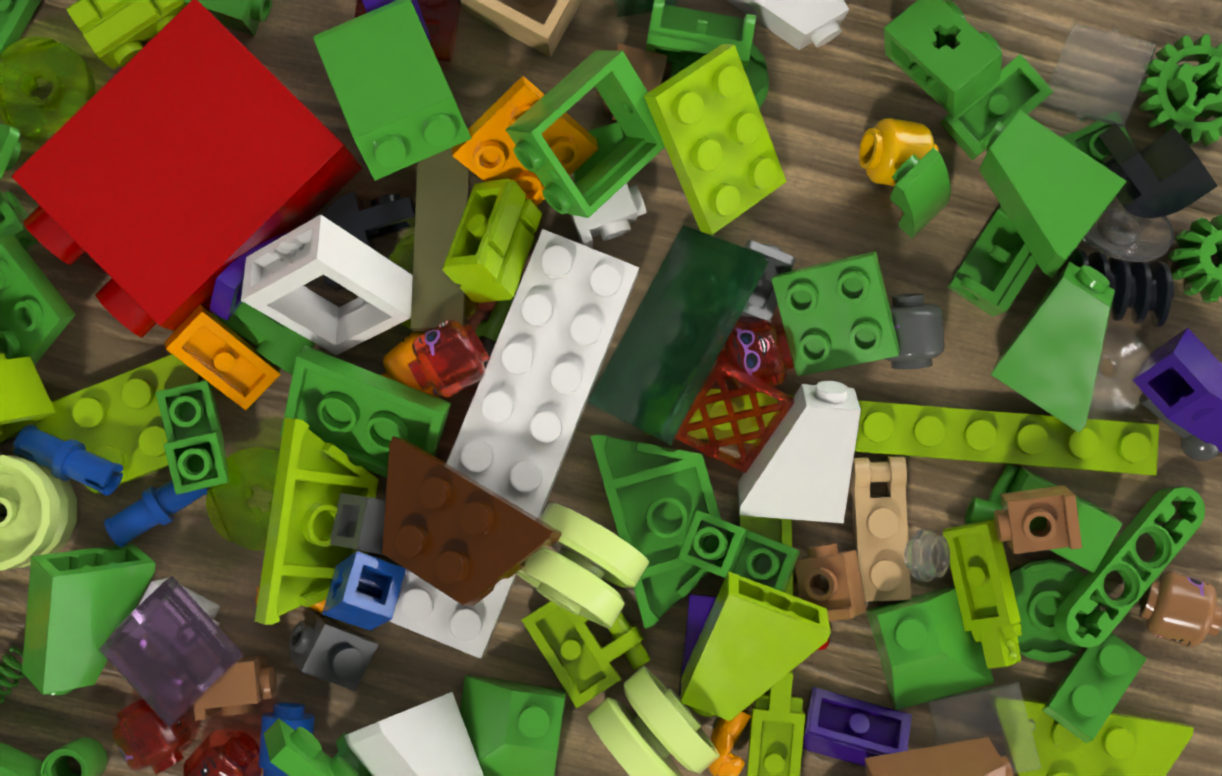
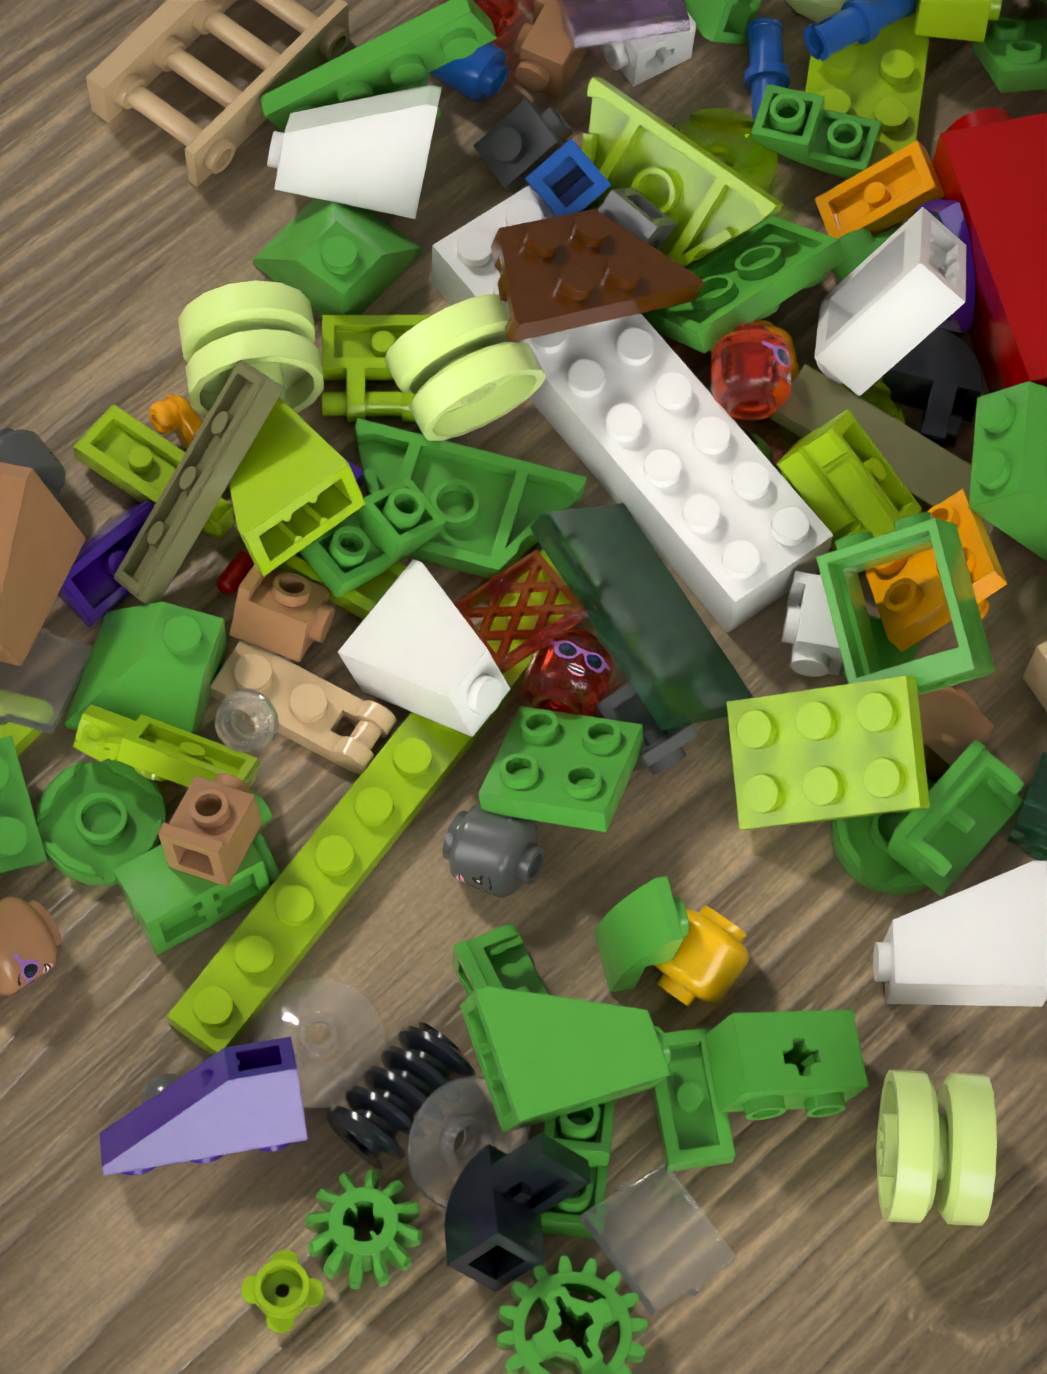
camera: 115 degrees right, 20 degrees down
(789, 699) = (198, 483): none -> olive tile
(1061, 346) = (374, 975): bright green slope -> none
(1135, 572) = (84, 923): bright green beam -> none

